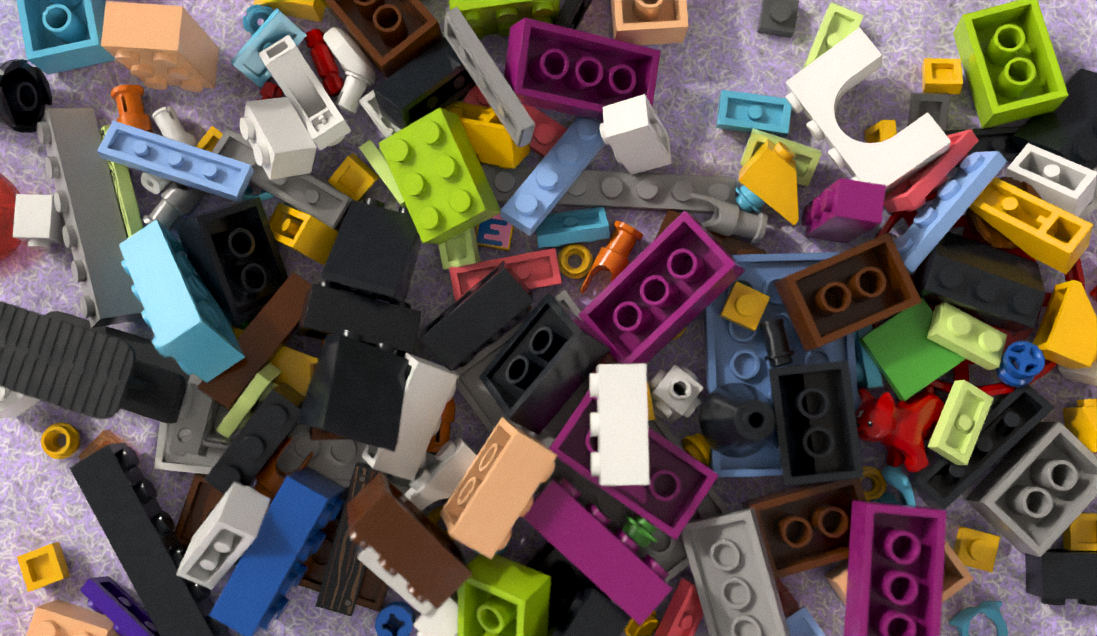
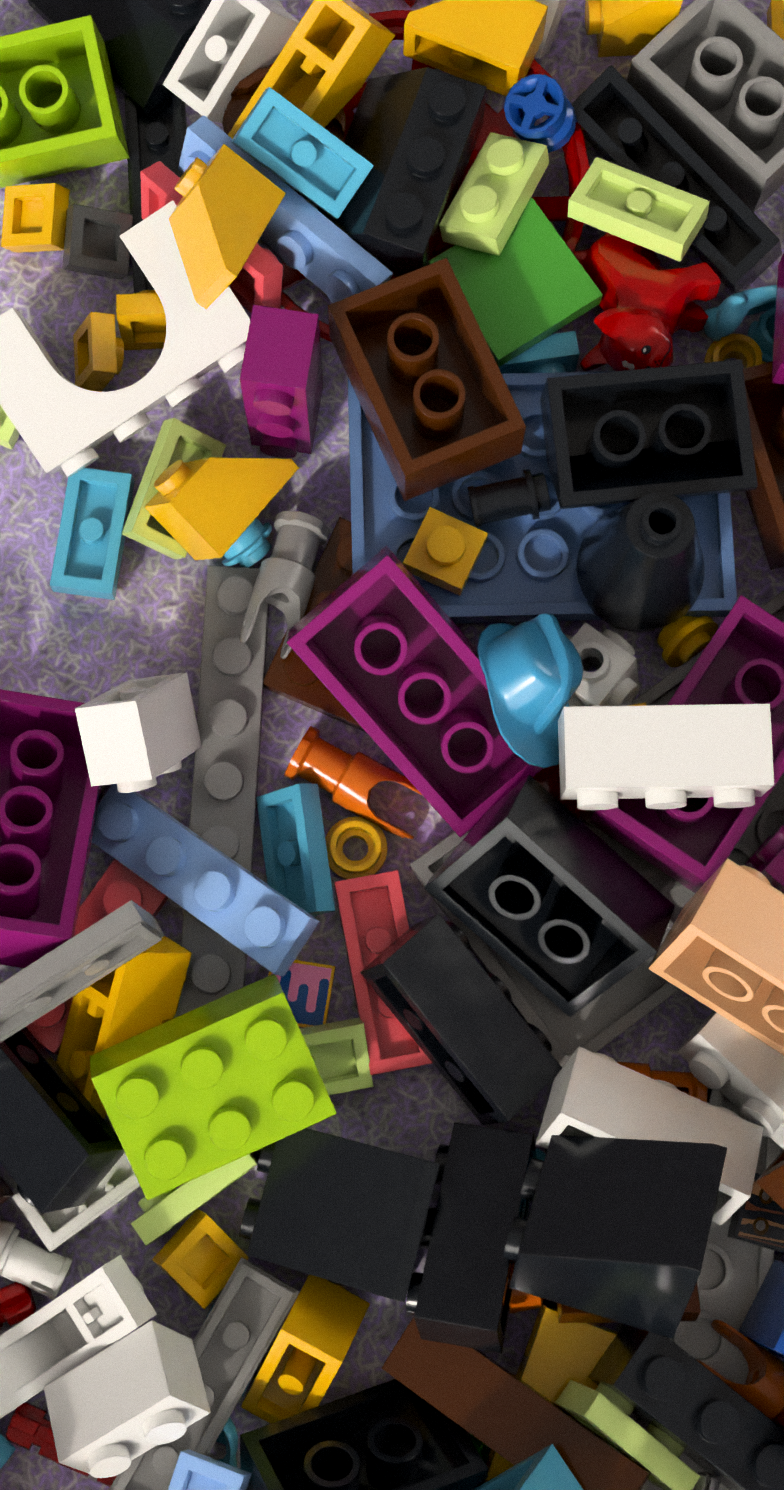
camera: 90 degrees left, 5 degrees down
(666, 349) = (529, 680): none -> dark azure piece
(860, 113) = (97, 352): none -> yellow plate
(940, 167) = (220, 219): none -> yellow slope
(985, 217) = (302, 153): none -> medium azure plate

